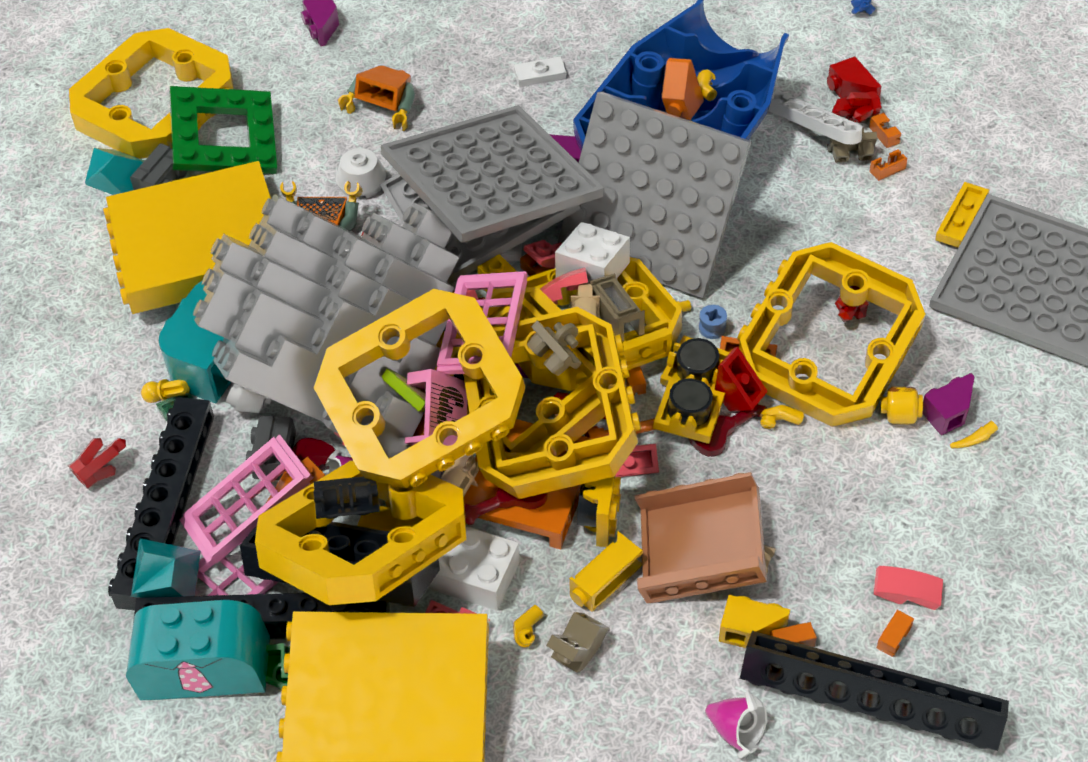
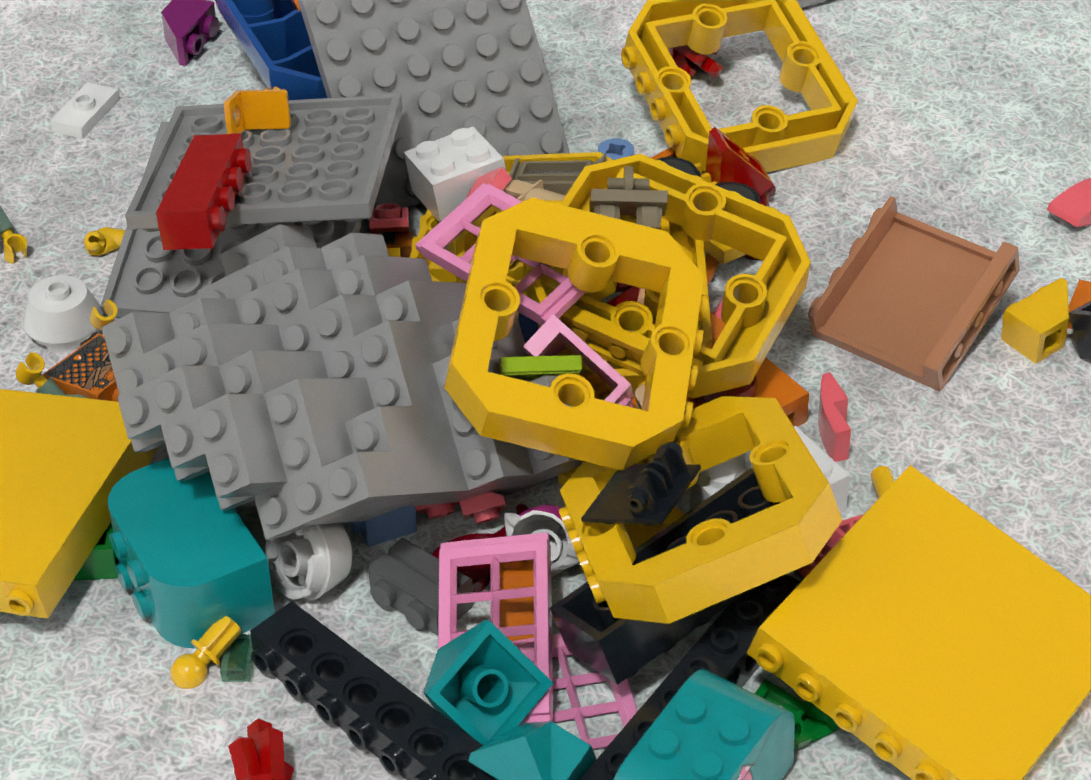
camera: 55 degrees left, 10 degrees down
(192, 516) = (484, 683): none -> teal slope
(409, 161) = (203, 191): none -> red brick
(518, 137) = (257, 110): none -> light orange bracket
(565, 554) = (832, 419): none -> coral slope
(578, 642) = (960, 454): dark tan brick -> none
(598, 508) = (808, 345): yellow piece -> none
(605, 573) = (881, 391): yellow window -> none
(780, 412) = (791, 171): yellow arm -> none
(902, 405) = (871, 89): yellow head -> none
(949, 405) = (892, 65): magenta slope -> none
(978, 436) = (942, 73): yellow helmet -> none

